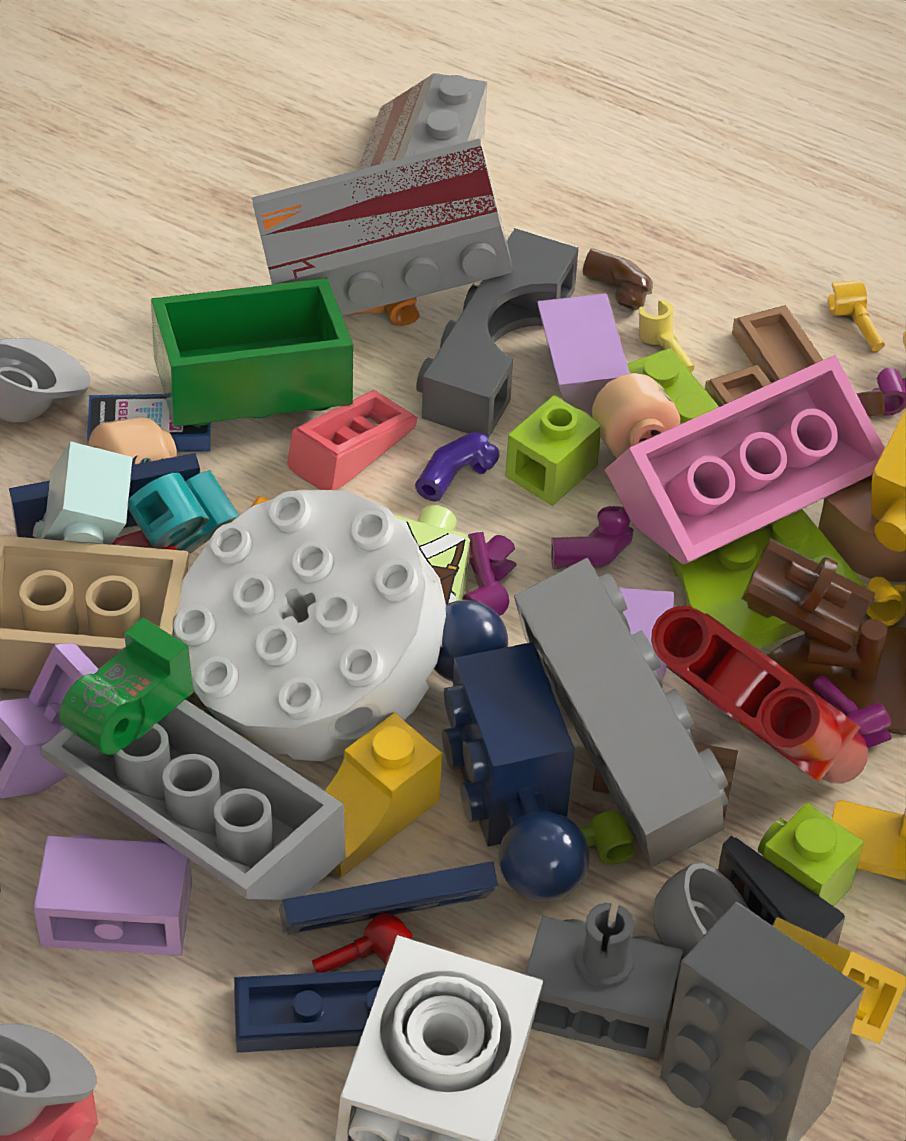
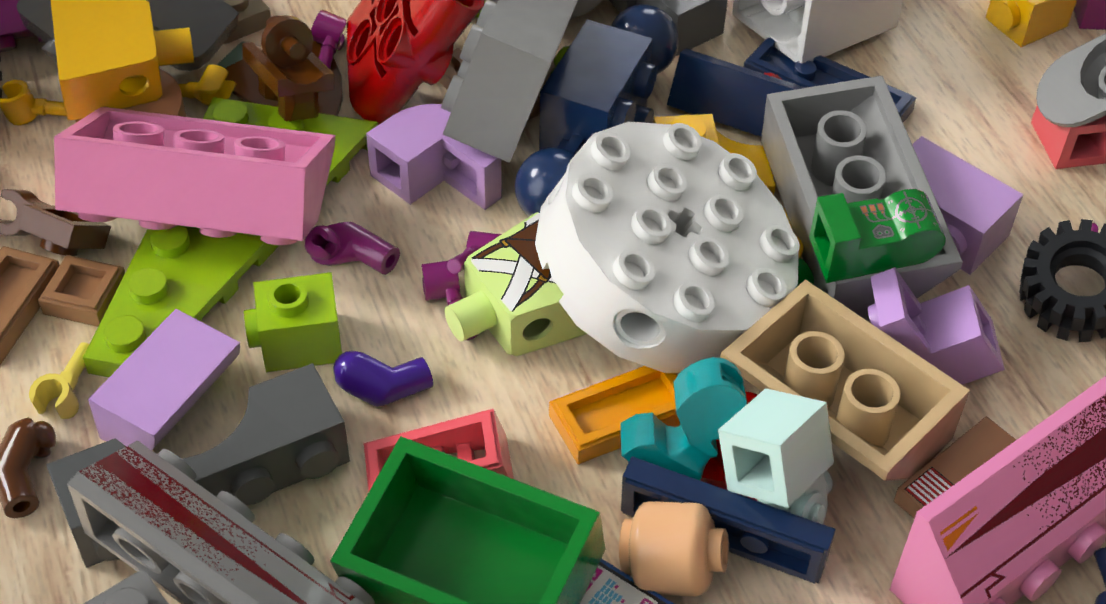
camera: 140 degrees left, 0 degrees up
(633, 411) = (217, 274): light nougat head -> none

